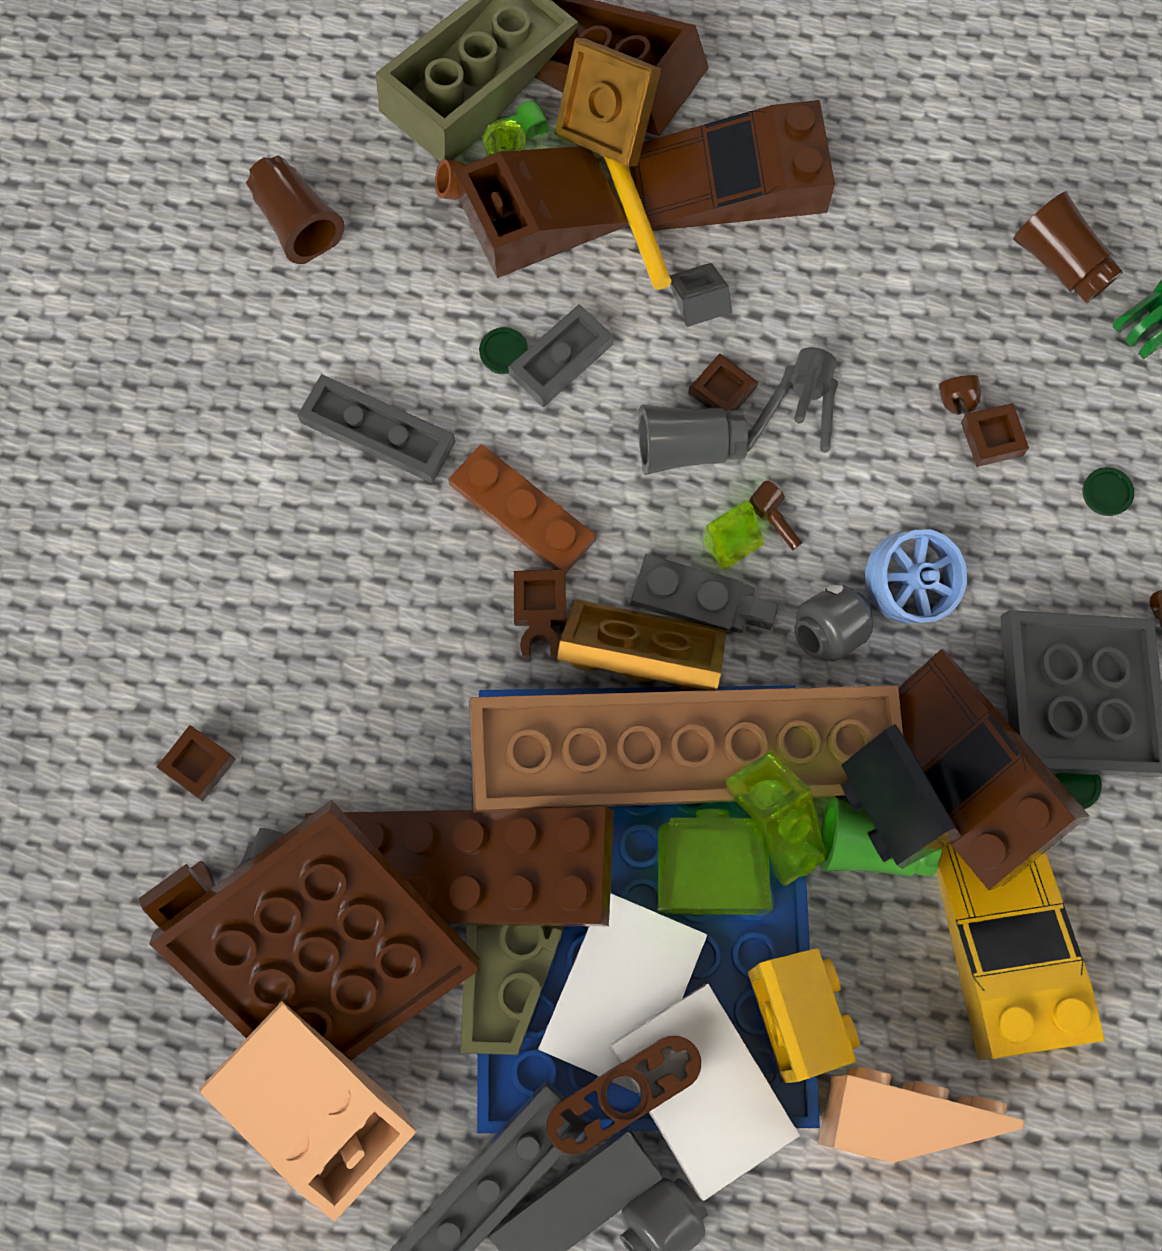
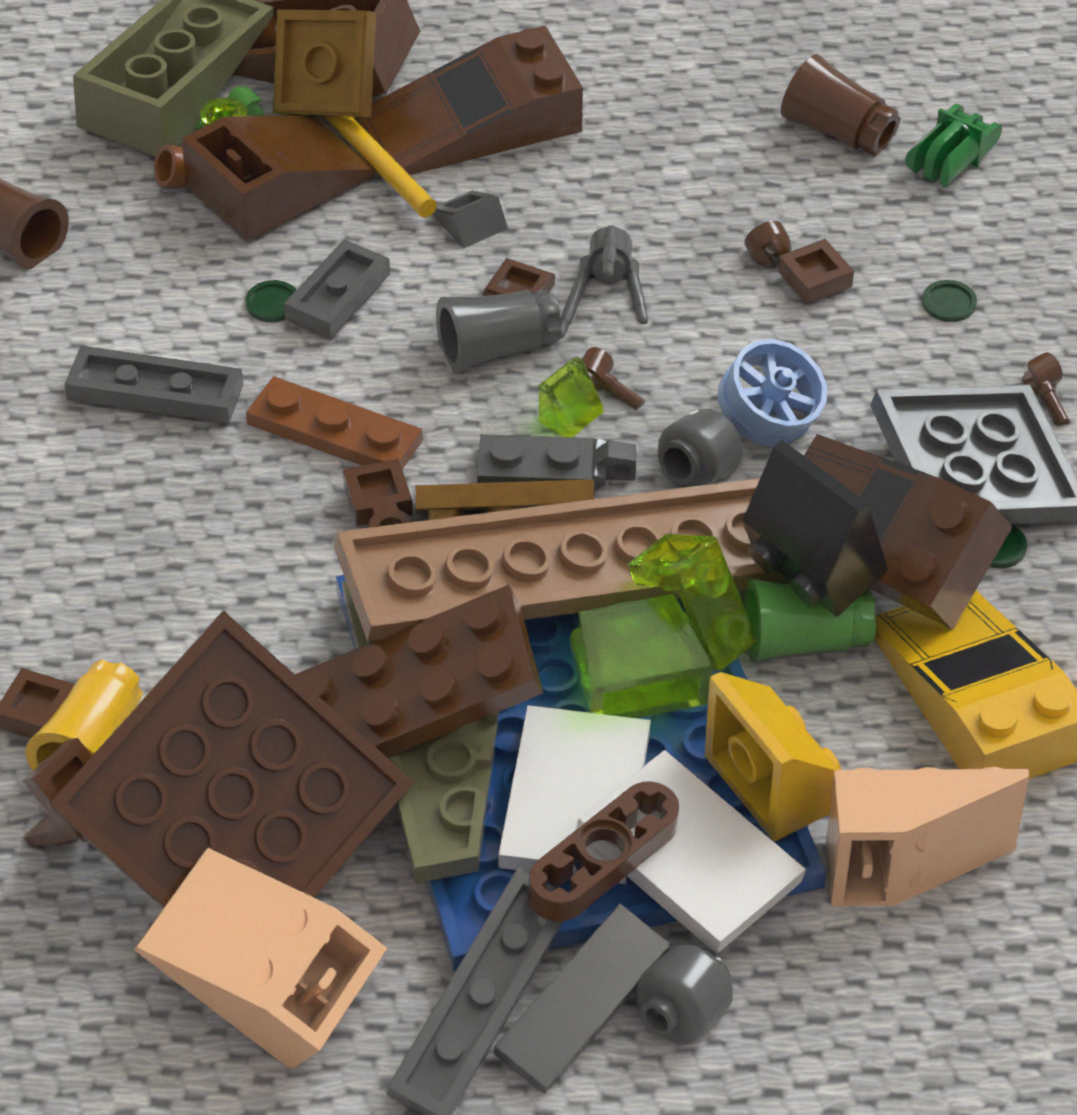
camera: 15 degrees left, 25 degrees down
(231, 802) = (89, 712): none -> yellow plant

